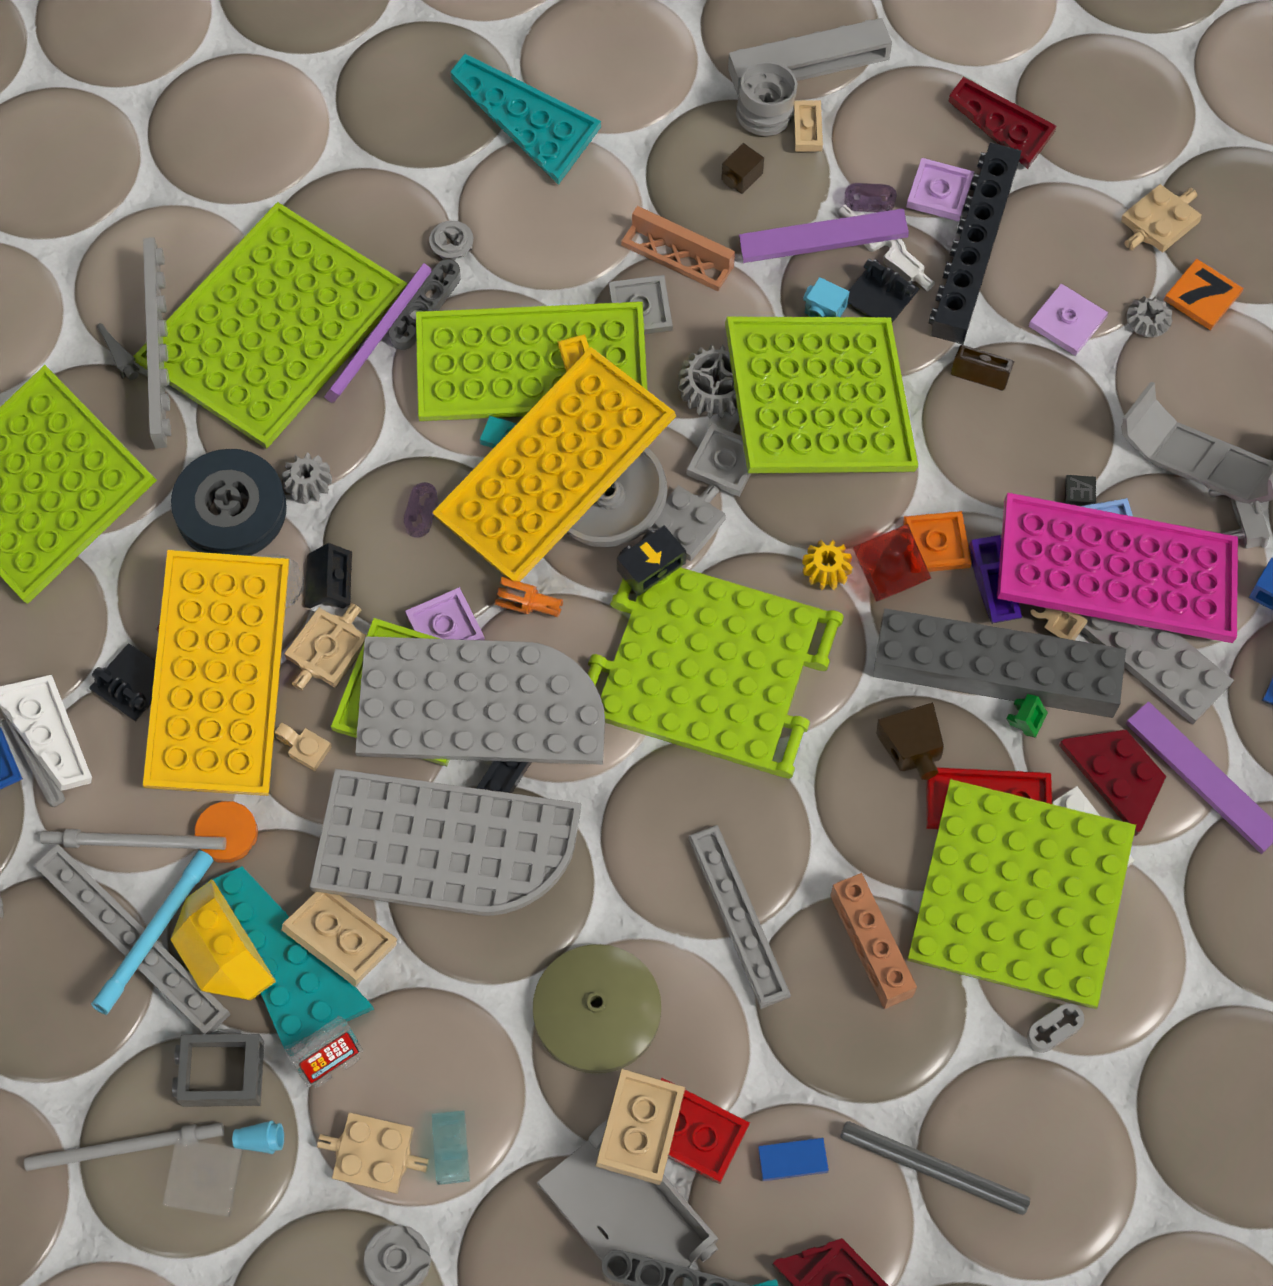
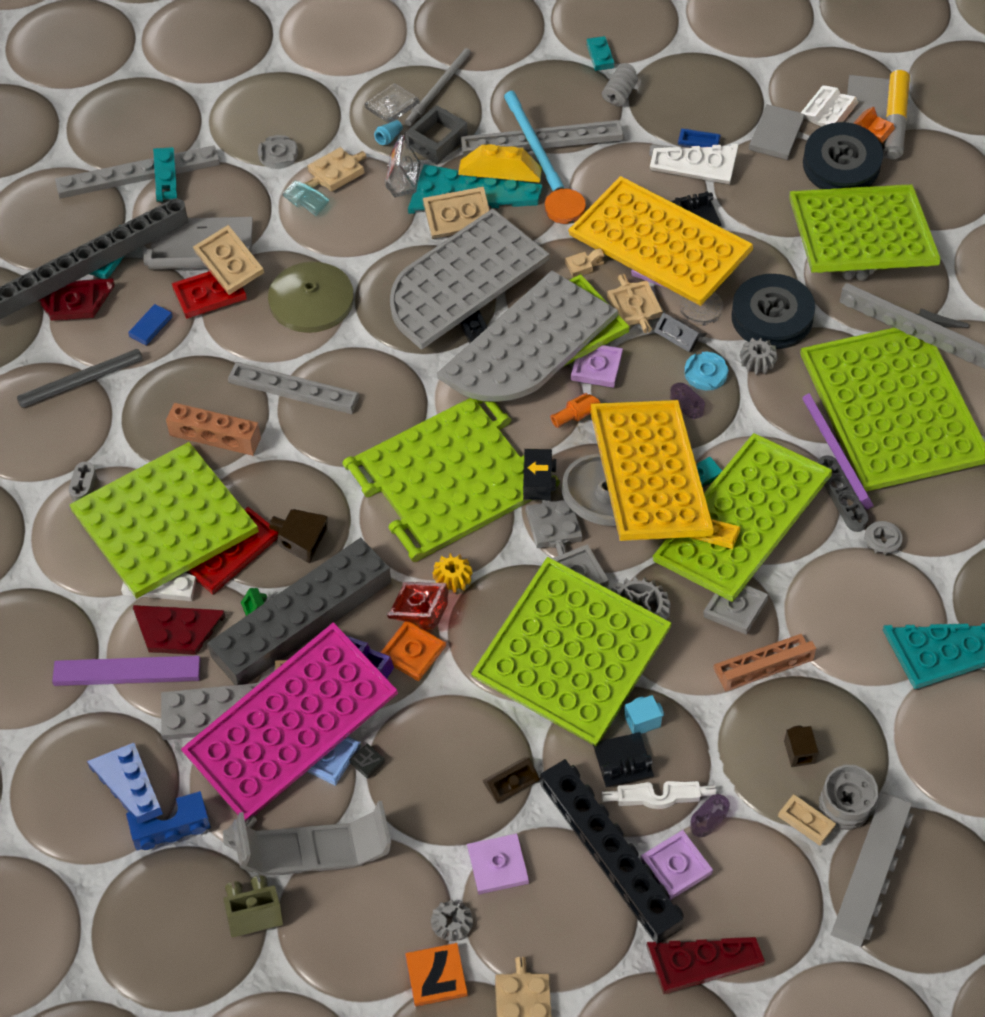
camera: 130 degrees right, 10 degrees down
(74, 838) = (621, 146): light grey bar -> none
(363, 520) = (706, 371): none -> medium azure tile
(823, 235) = (698, 756): medium lavender tile -> none

